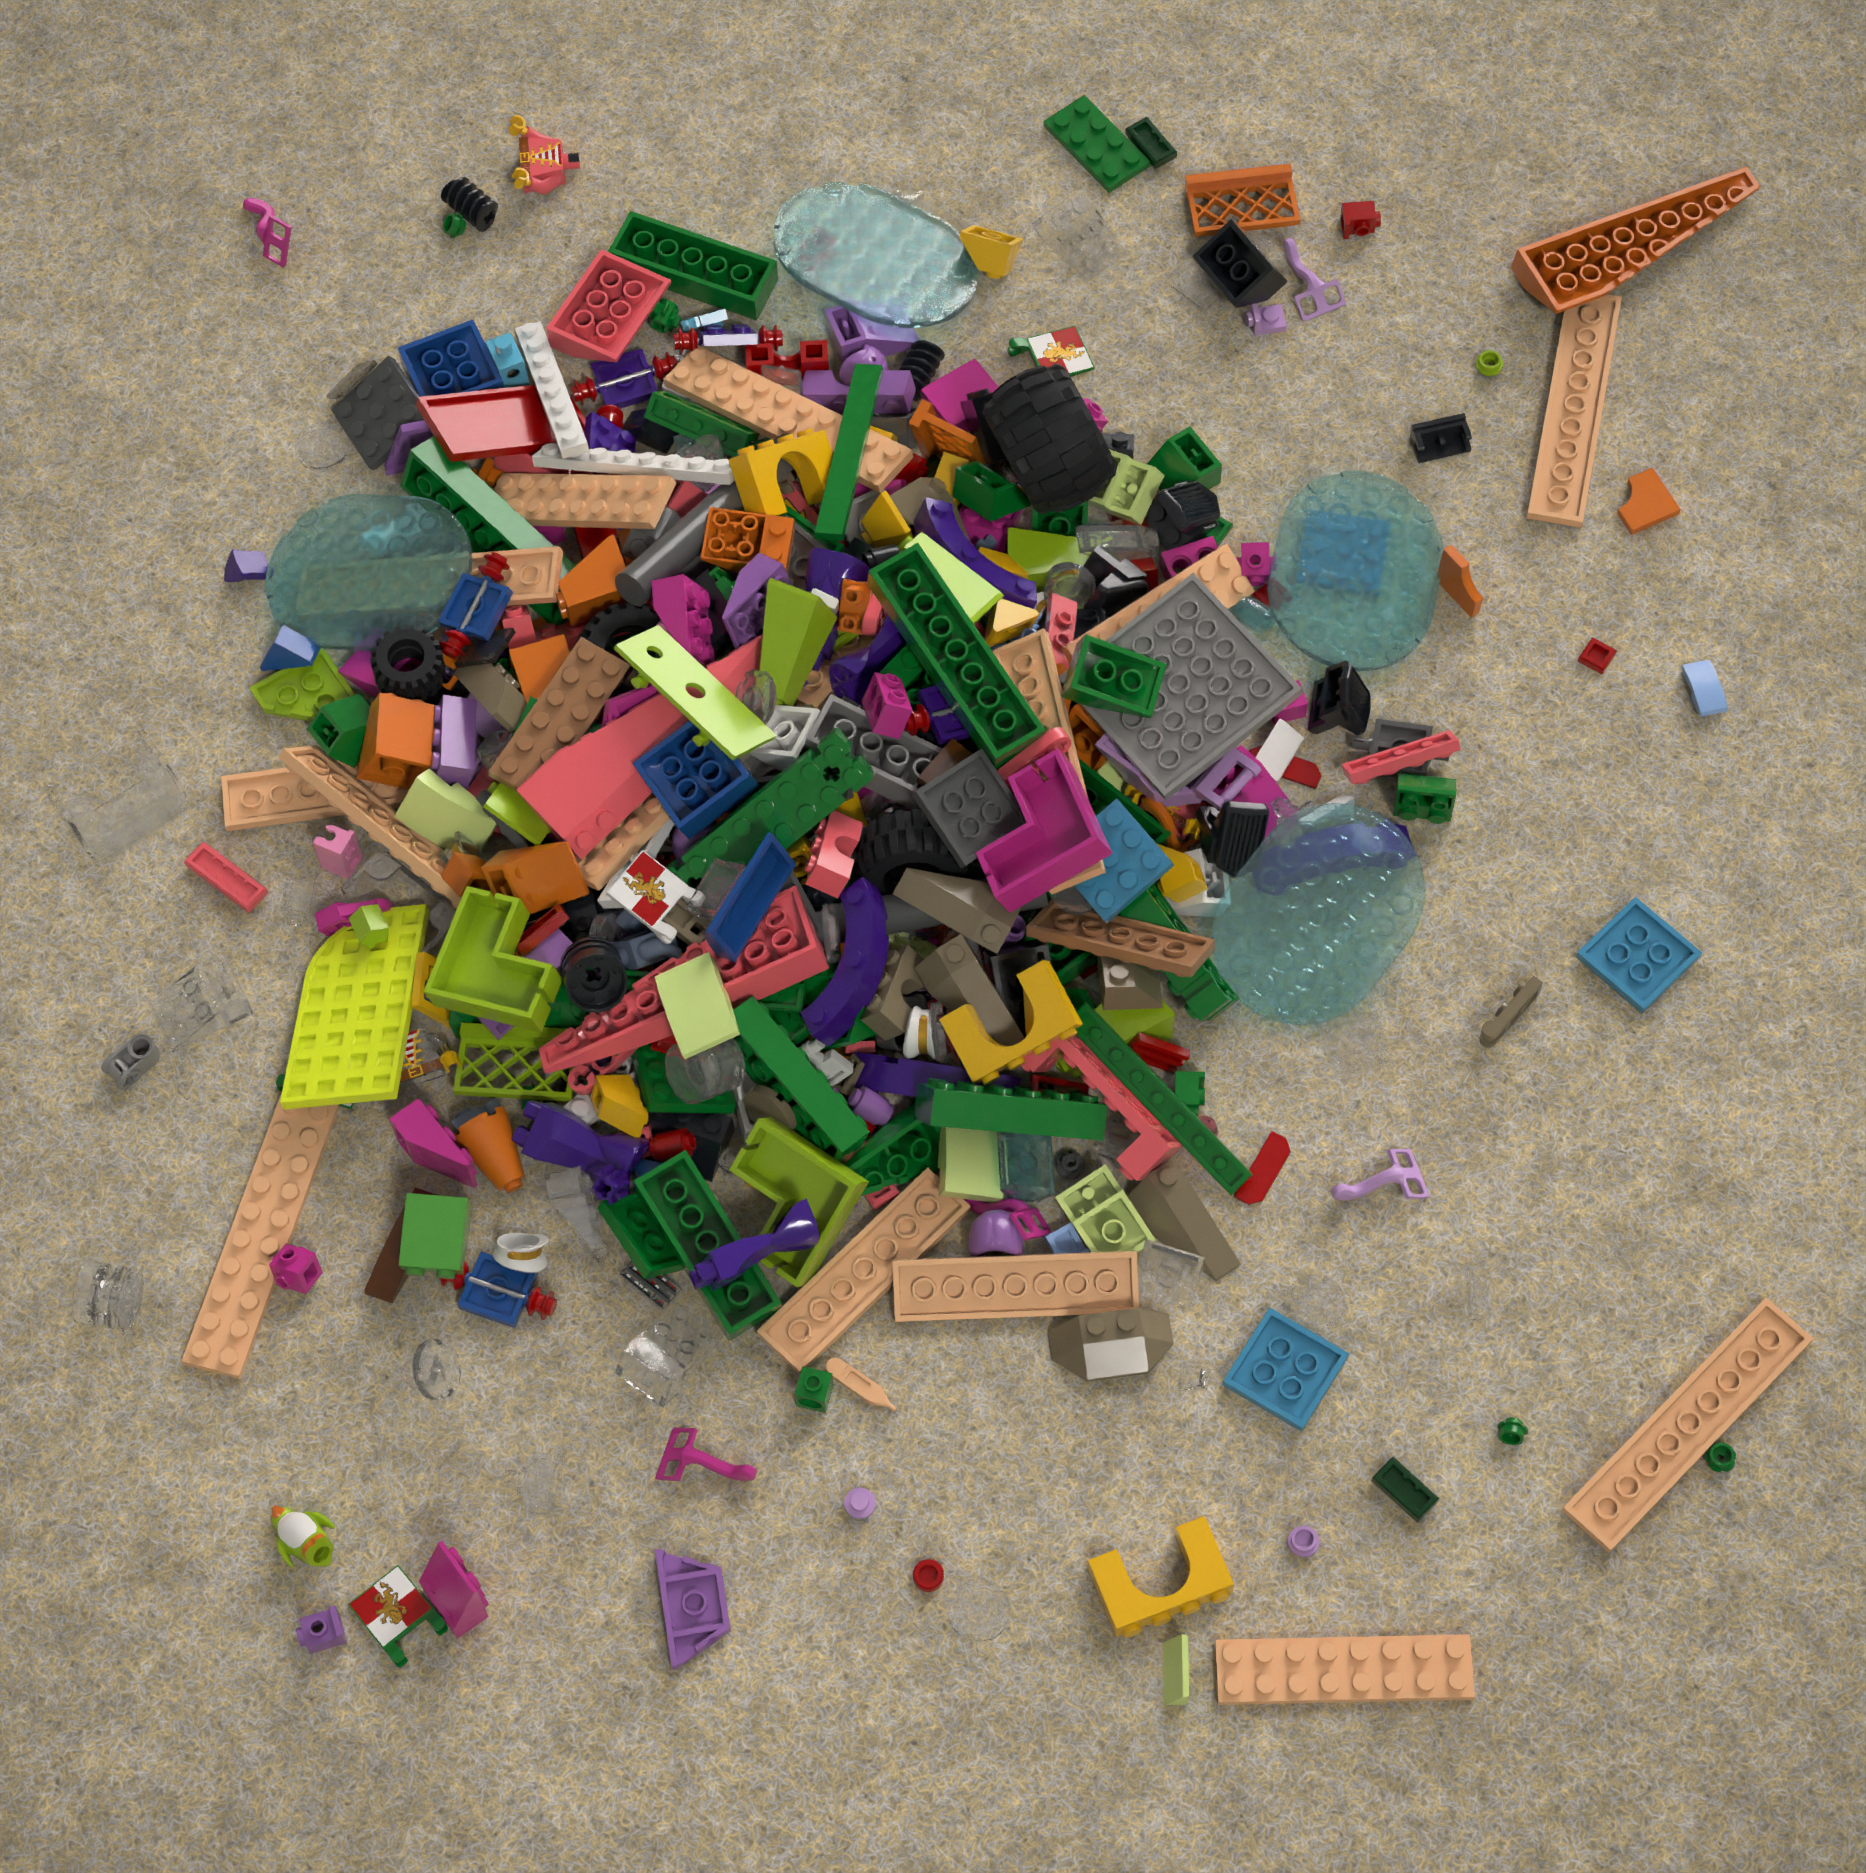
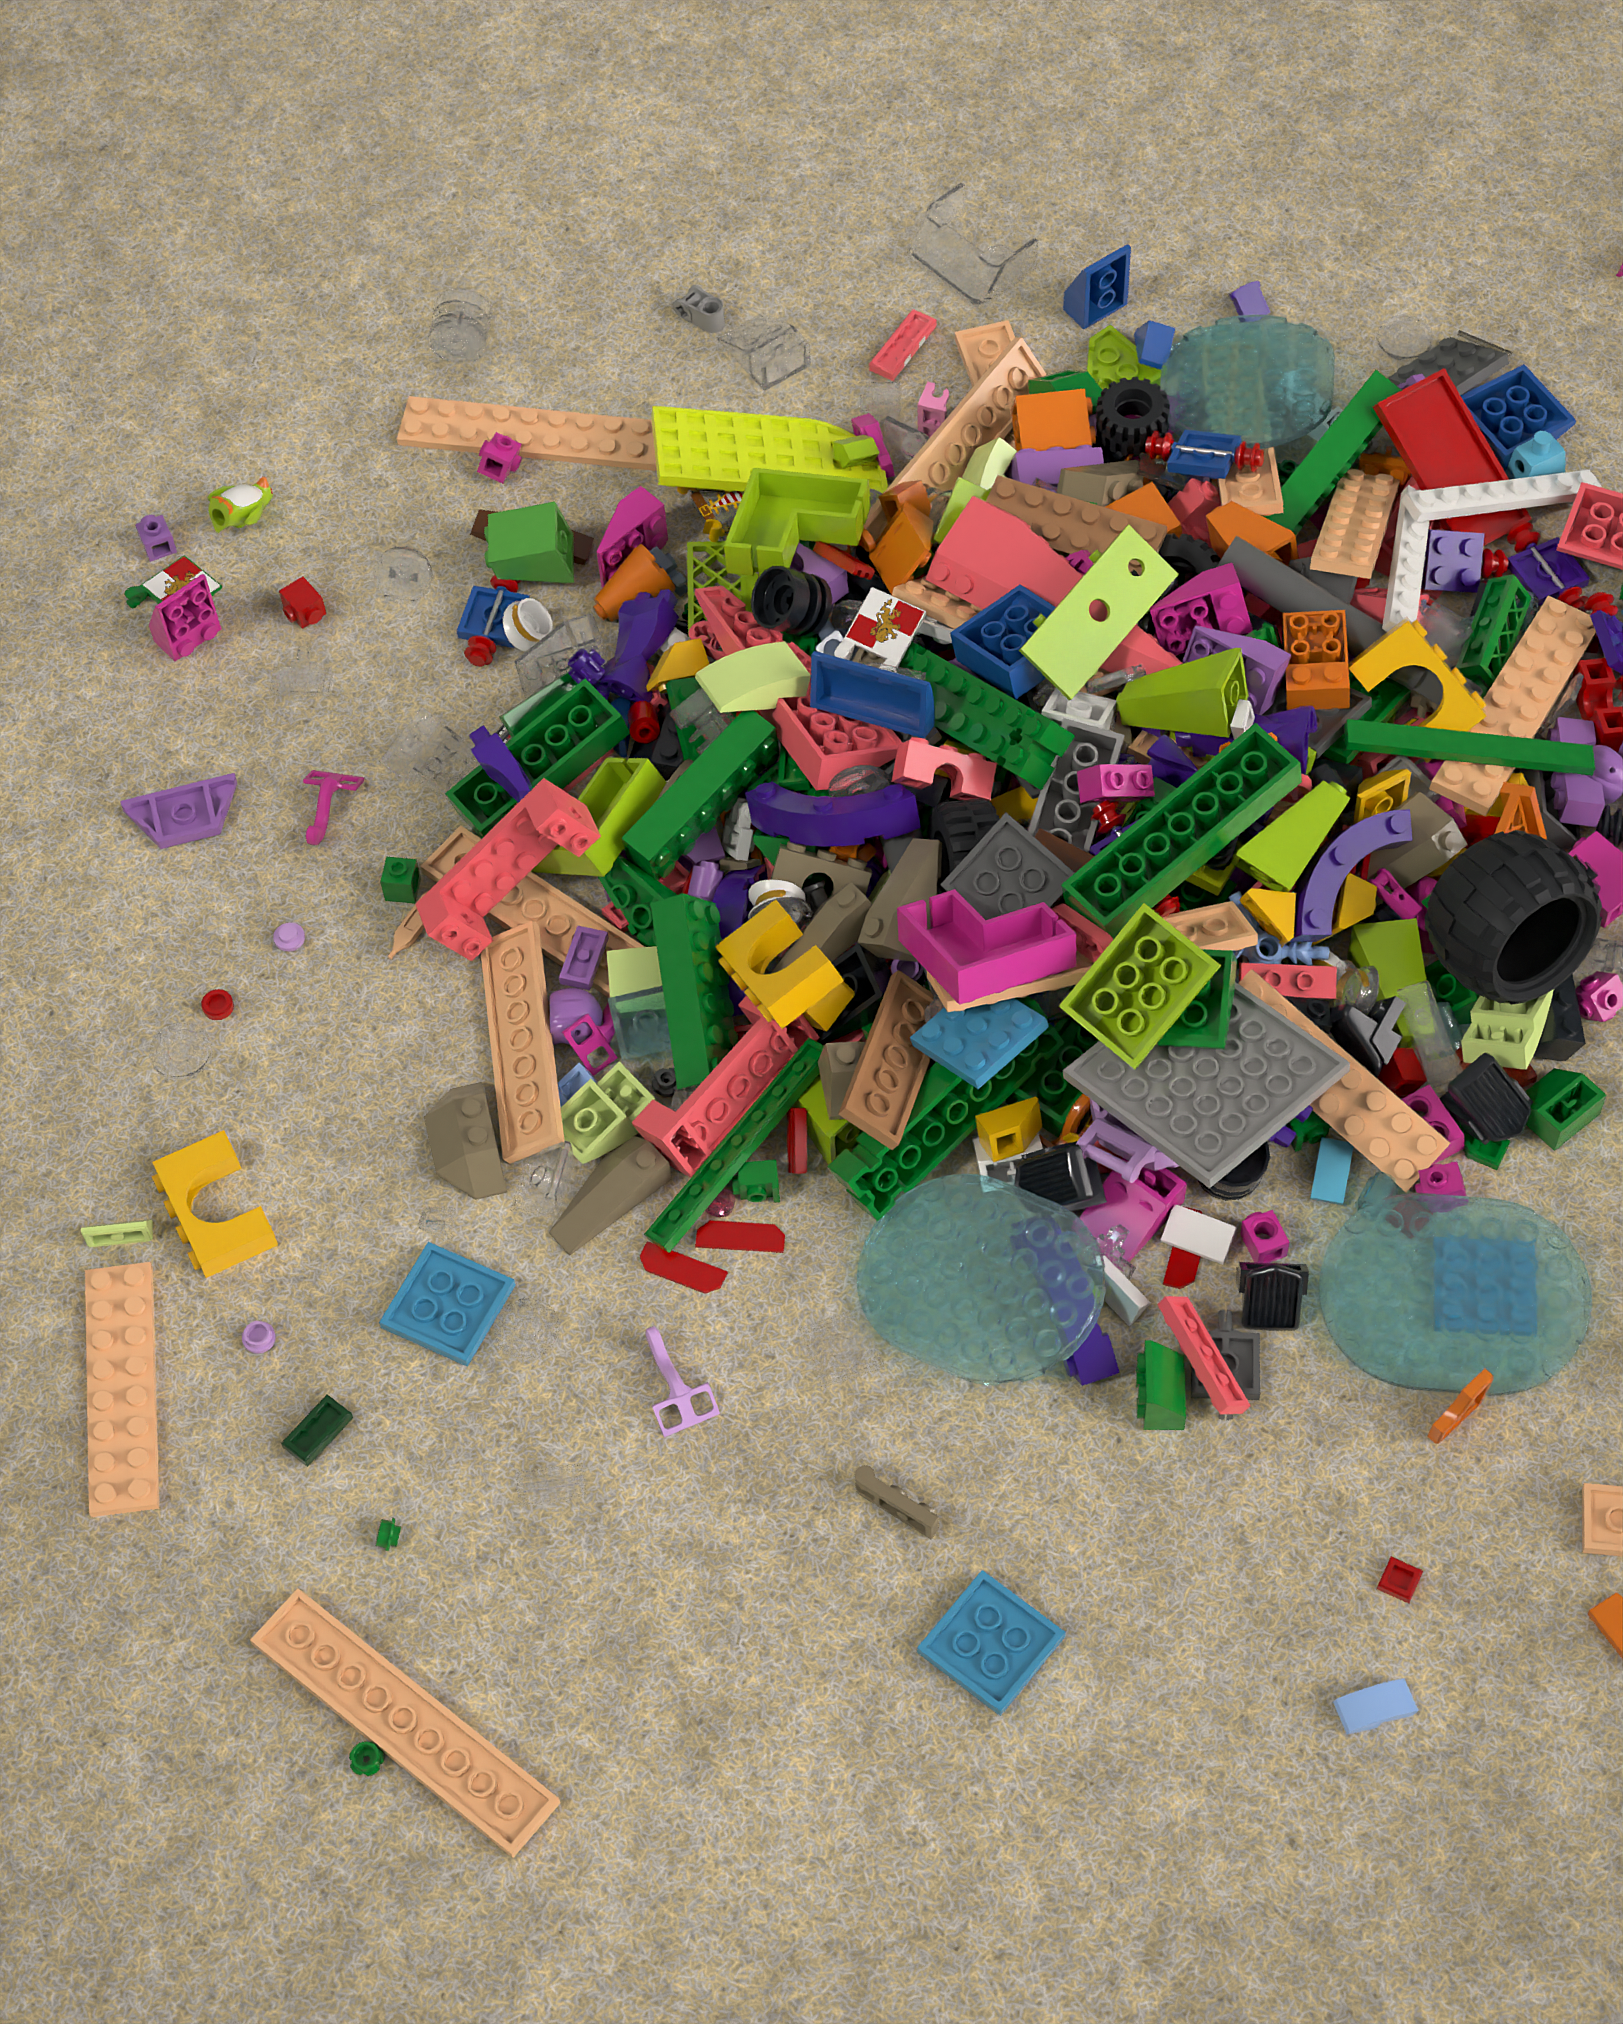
camera: 85 degrees right, 5 degrees down
(207, 687) = (1099, 289): none -> blue slope
(446, 1476) = (302, 603): none -> red brick
(875, 1333) = (499, 861): none -> coral plate
(936, 1220) = (583, 957): none -> medium lavender plate
(988, 536) = (1398, 899): none -> dark pink bar
(1109, 711) = (1139, 986): none -> lime slope
(1237, 1116) = (740, 1236): none -> red piece

